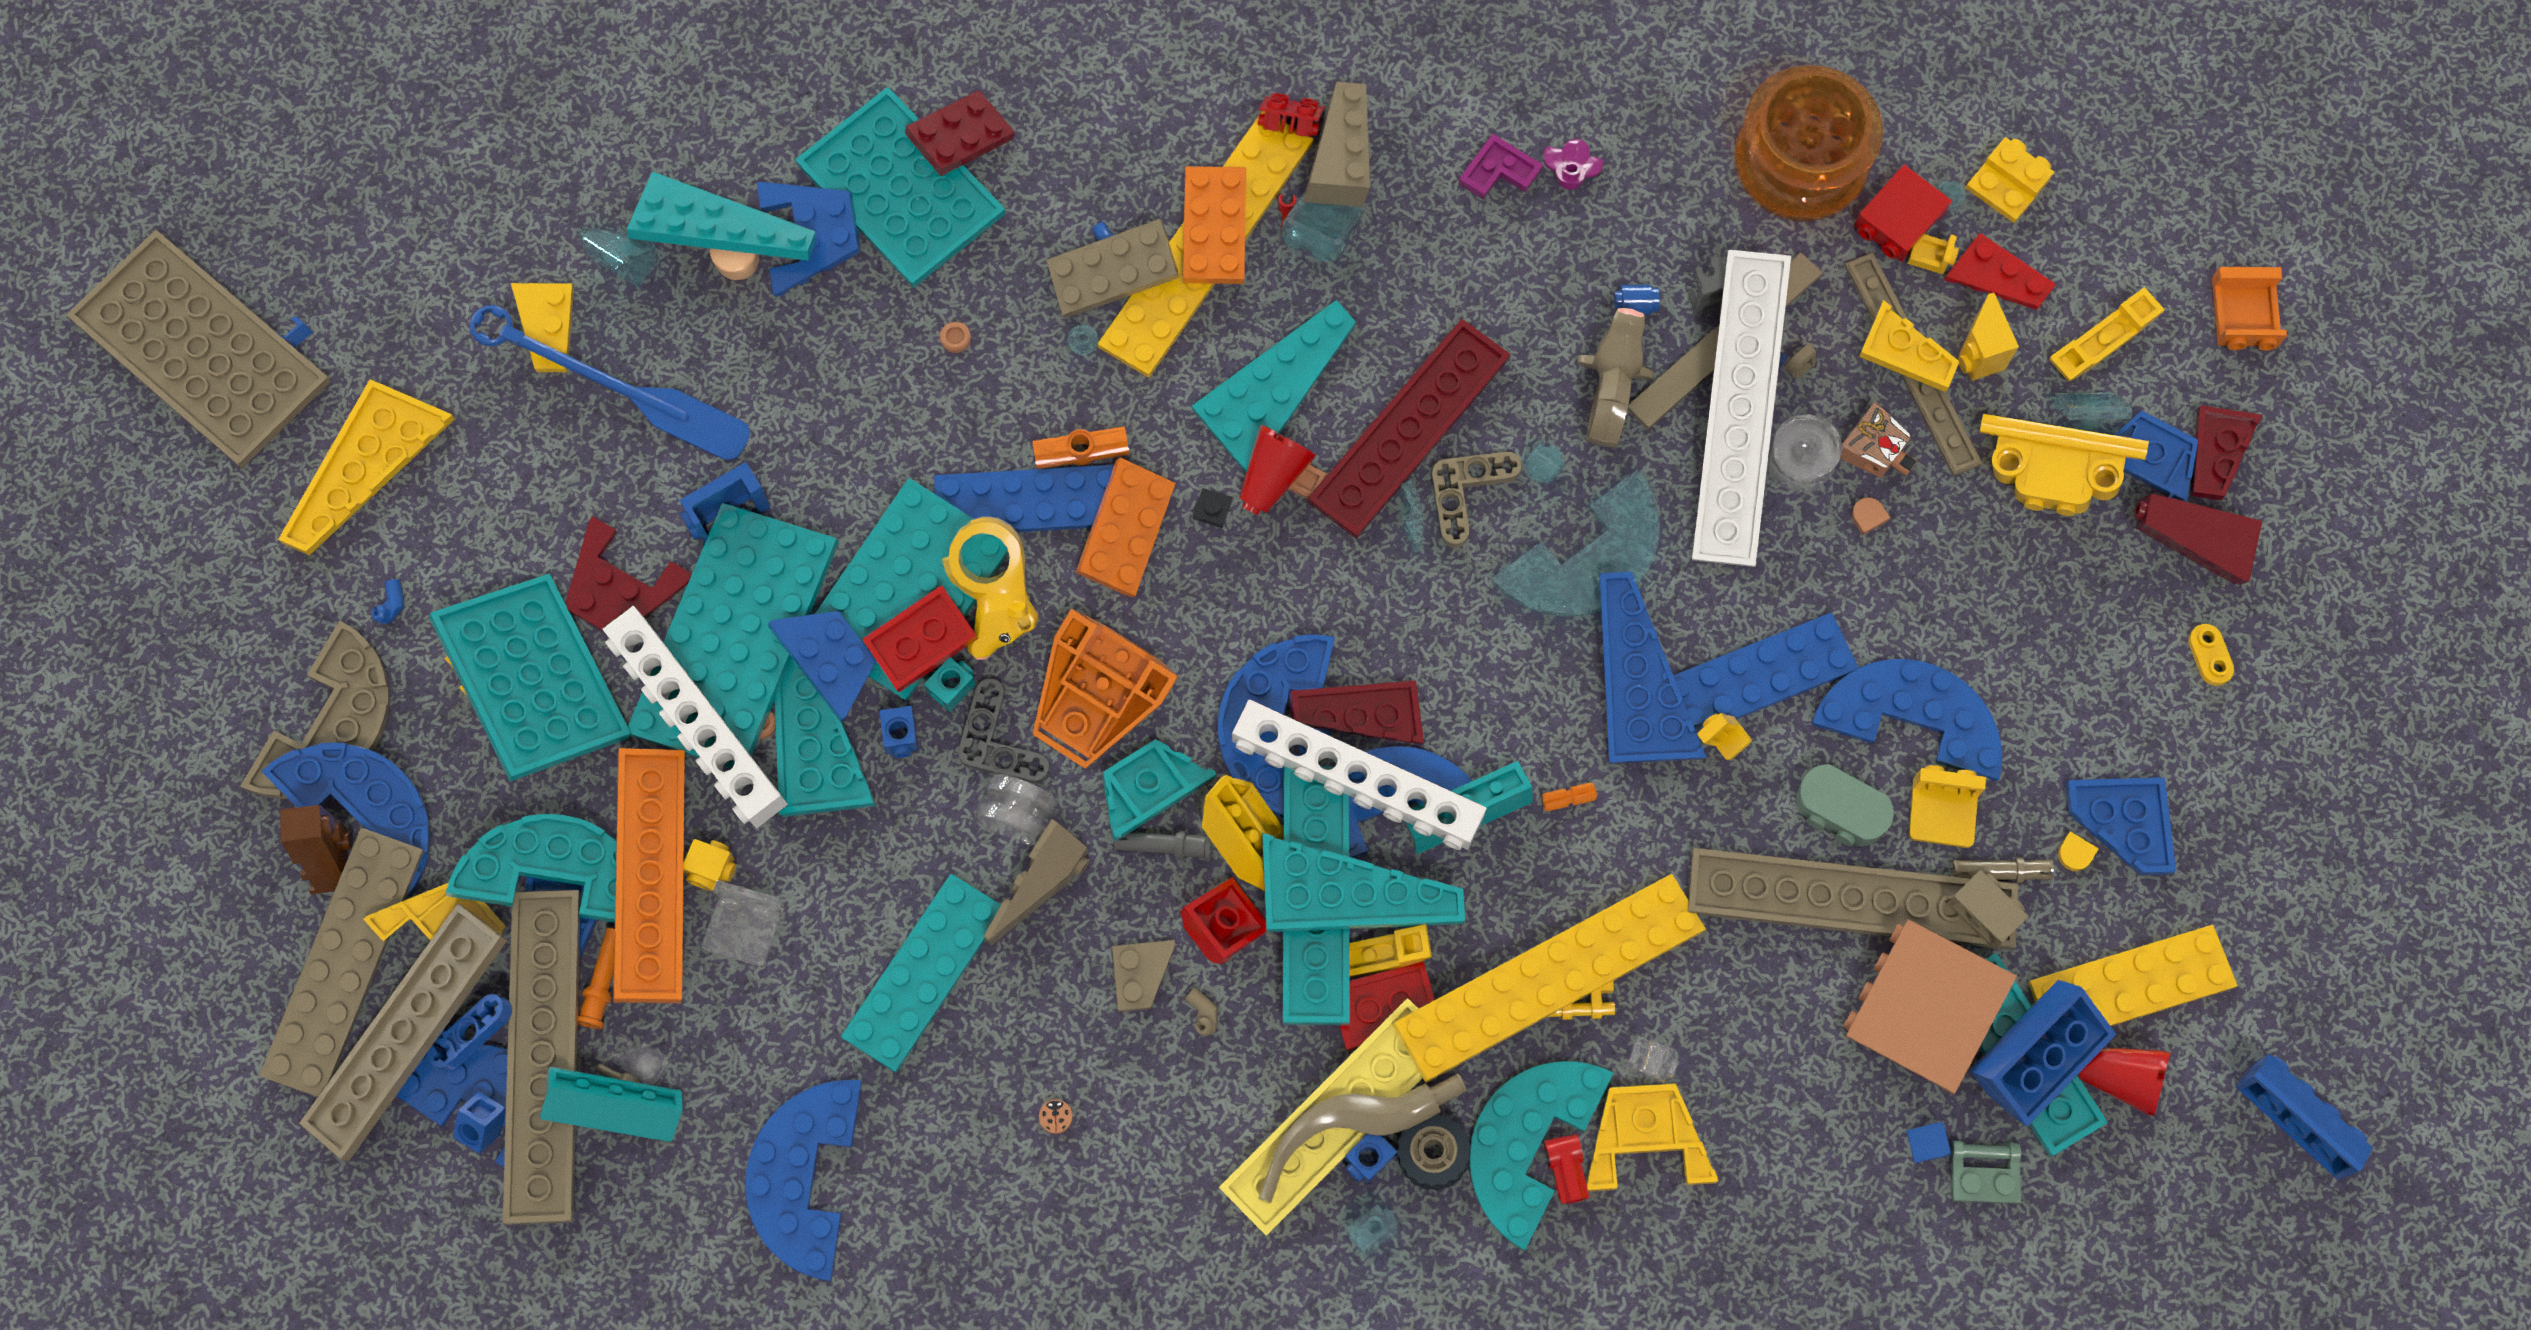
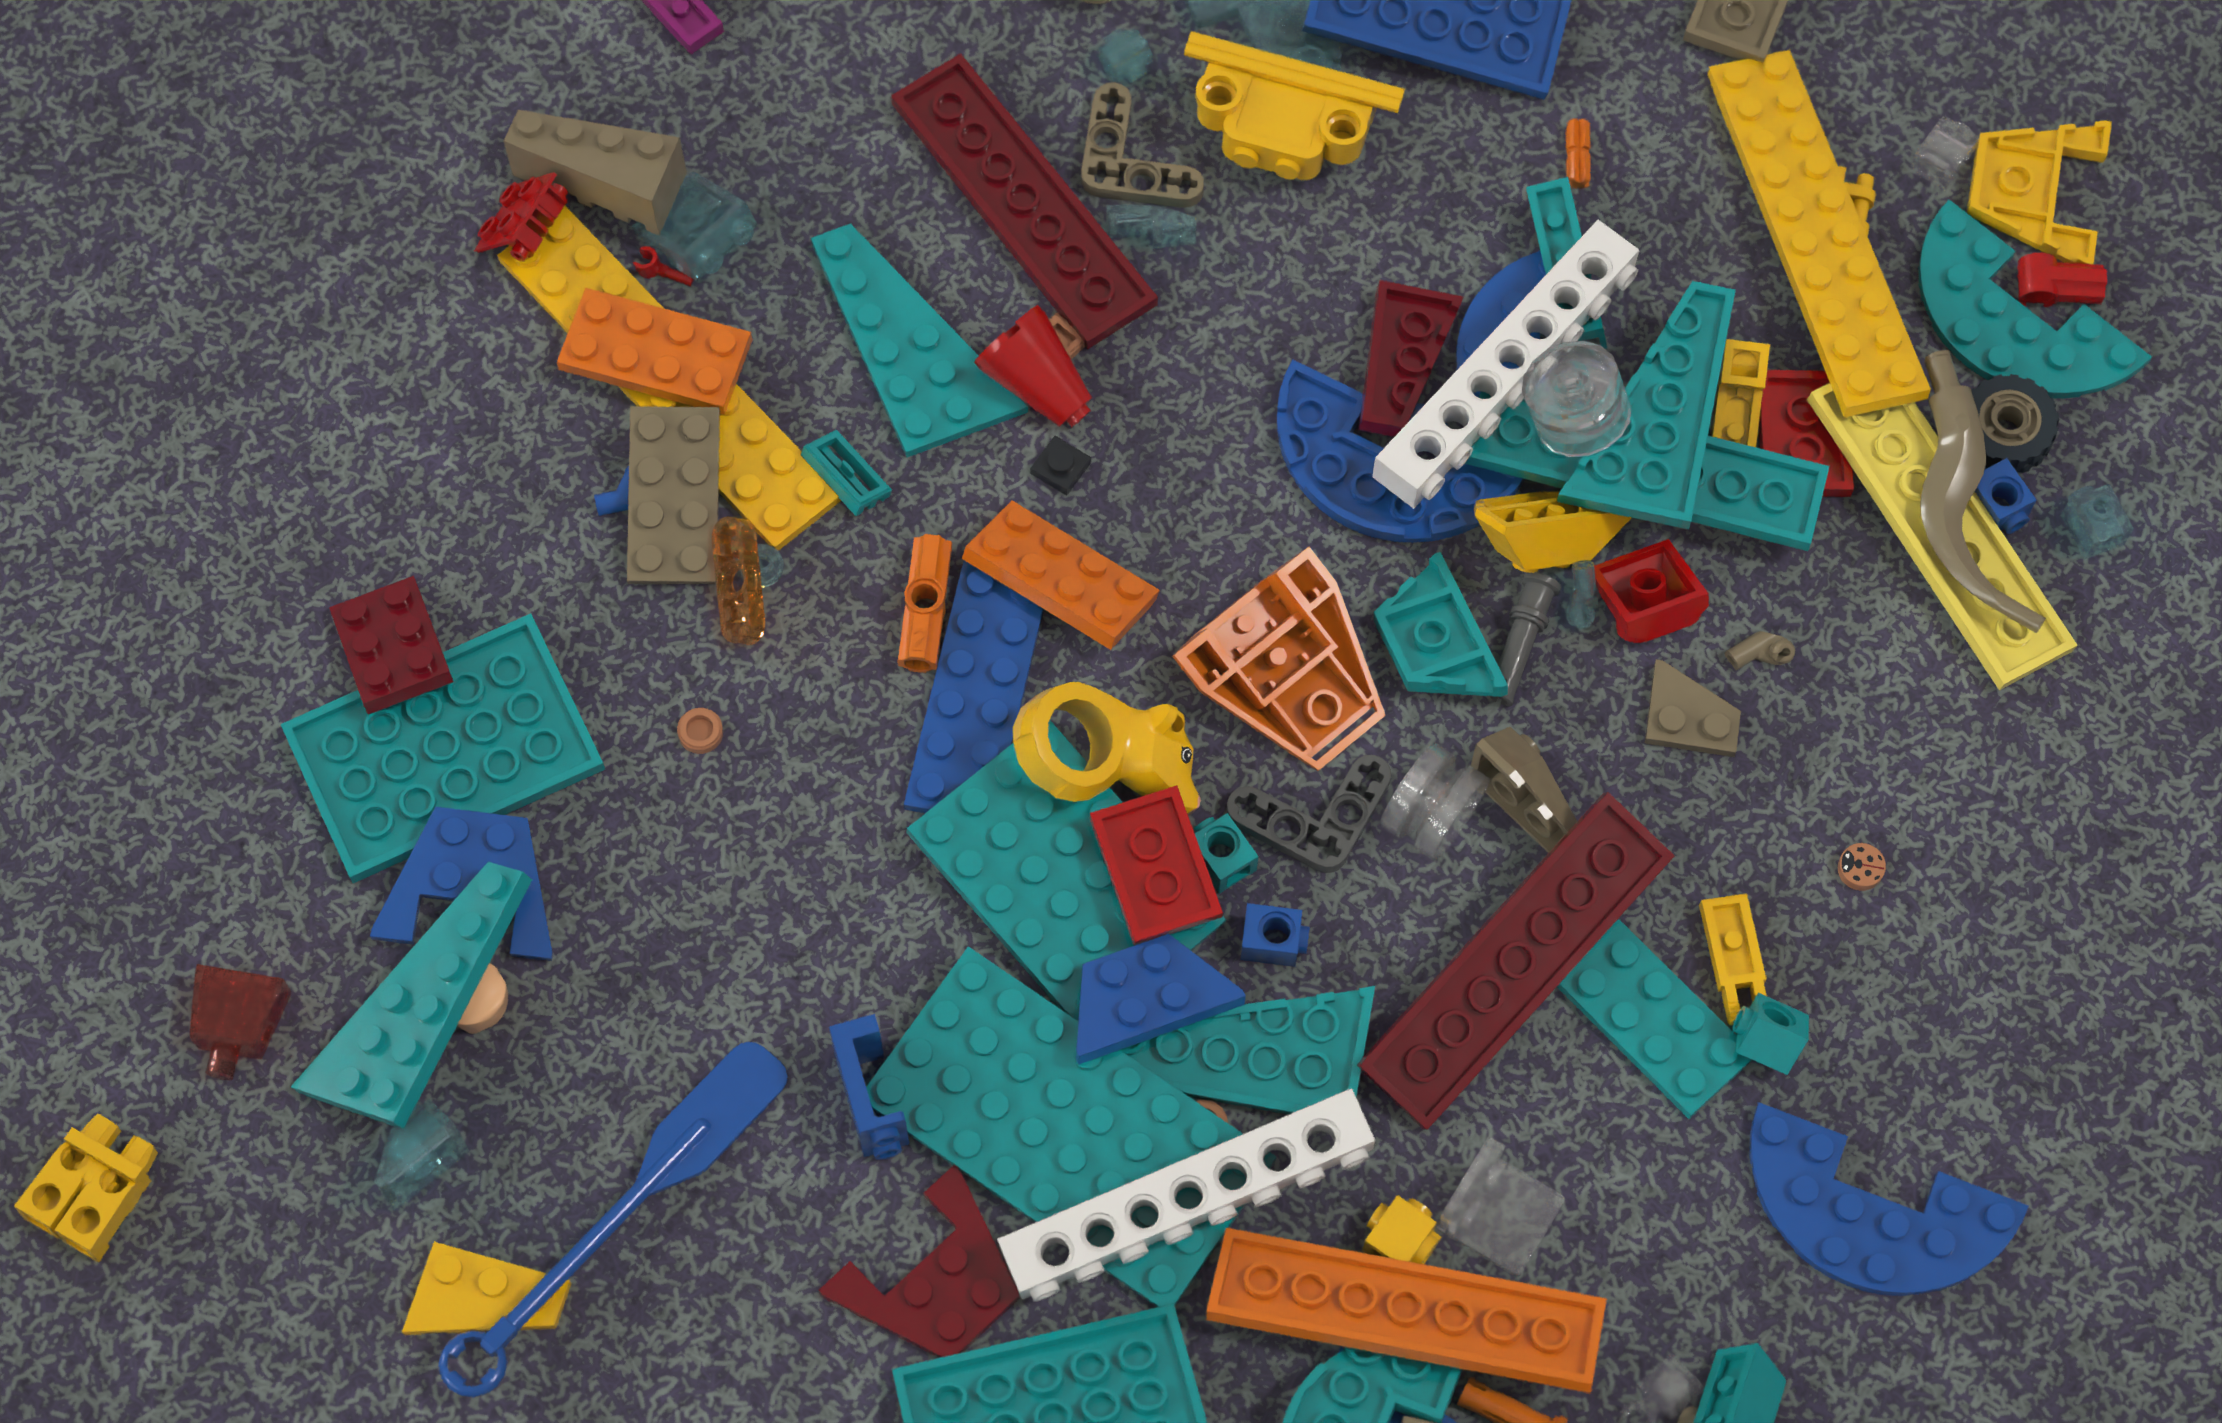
camera: 75 degrees left, 5 degrees down
(559, 79) = (88, 1187): none -> yellow hips
(687, 123) = (234, 1015): none -> clear red torso
(914, 890) = (1515, 961): none -> dark red plate
(918, 1079) = (1771, 1033): none -> teal brick
(965, 1041) = (1733, 949): none -> yellow hinge
(1062, 326) = (746, 550): none -> clear orange beam
(1150, 392) = (840, 474): none -> teal tile
(1208, 879) = (1584, 597): none -> clear light blue arm
(1334, 824) = (1576, 398): none -> clear wheel
(1524, 575) = (1283, 109): none -> yellow brick

